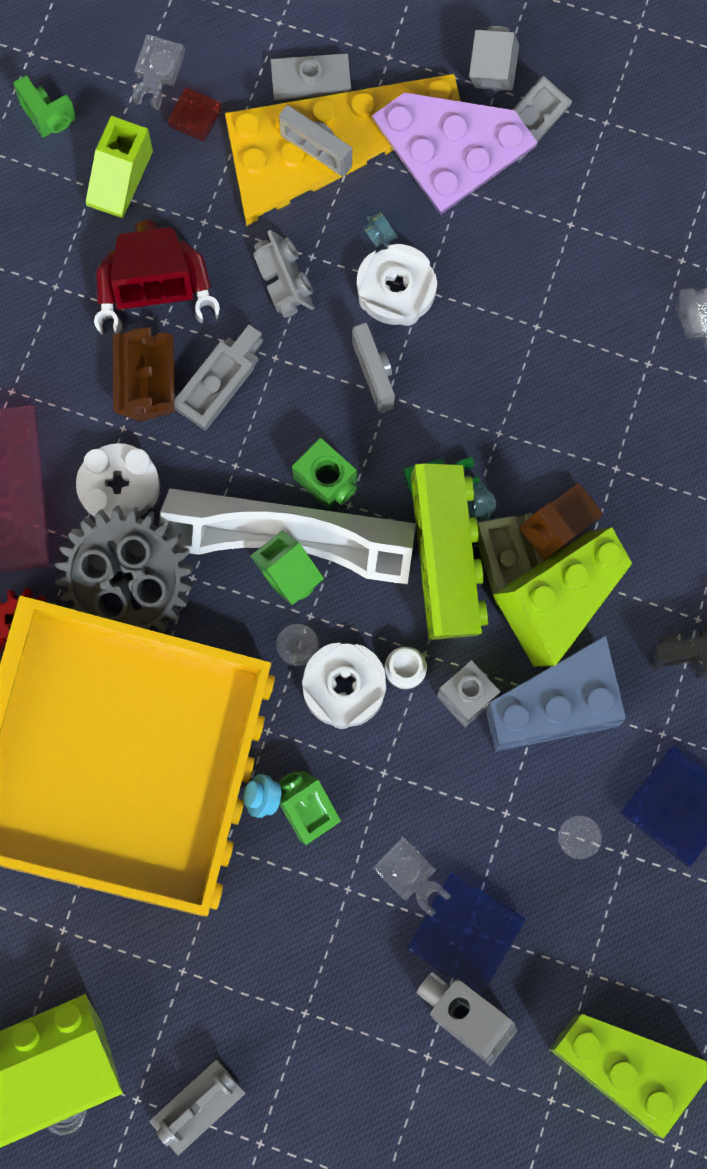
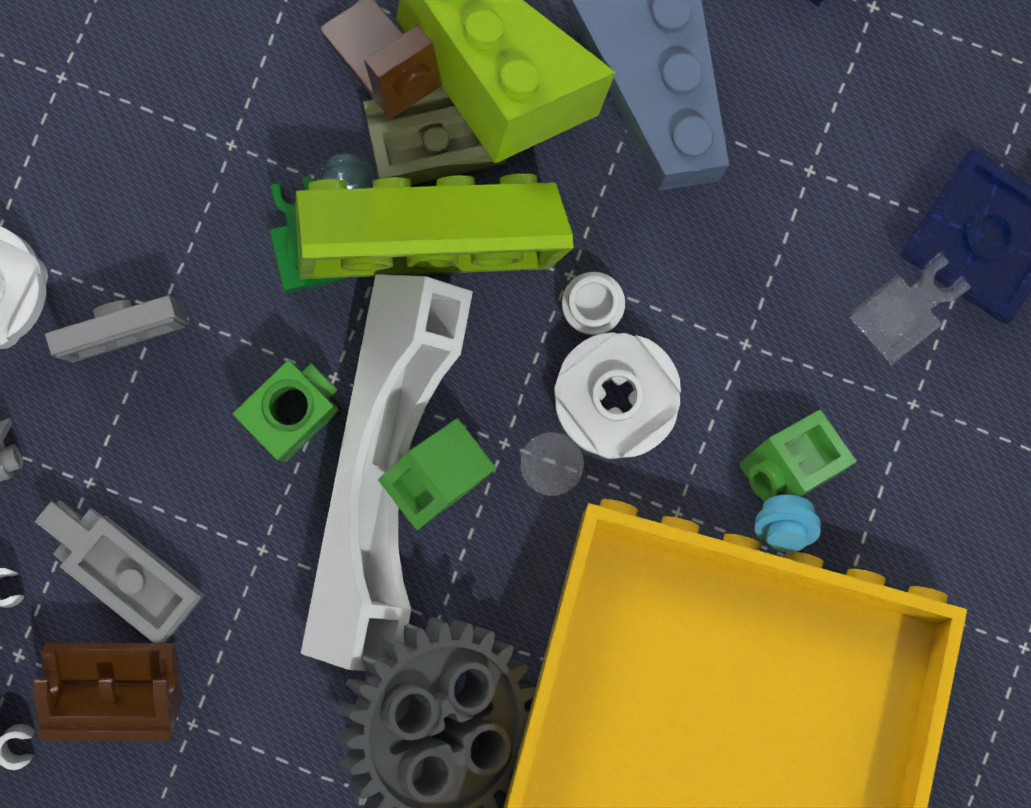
camera: 85 degrees left, 10 degrees up
(117, 460) = (257, 761): white plate -> none
(468, 693) = (642, 209): light grey brick -> none
(579, 837) = (852, 65): clear plate -> none

